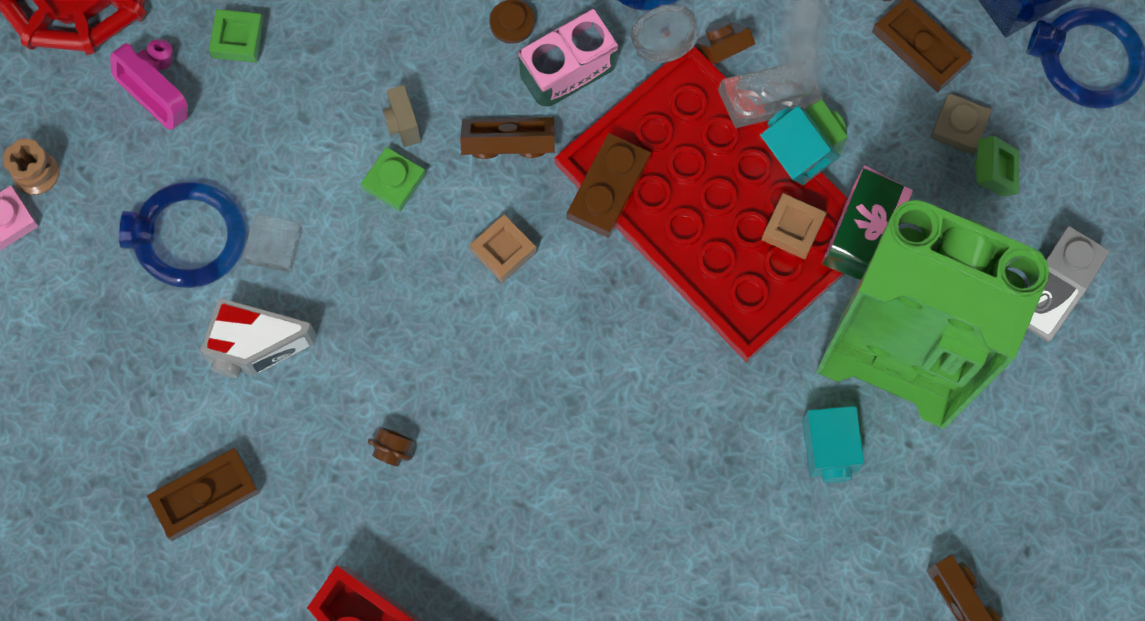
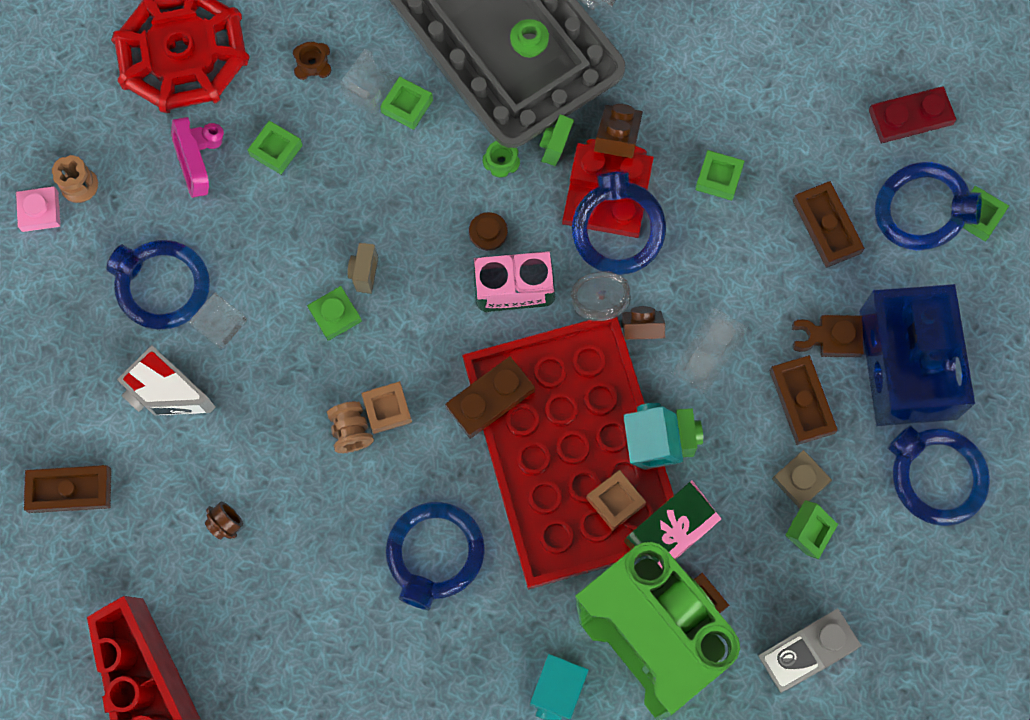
camera: 30 degrees right, 0 degrees up
(475, 286) = (349, 427): none -> medium nougat bush
(507, 136) = (436, 321): reddish brown plate -> none
(635, 416) = (417, 589): none -> clear blue piece
(765, 92) = (654, 382): clear plate -> none

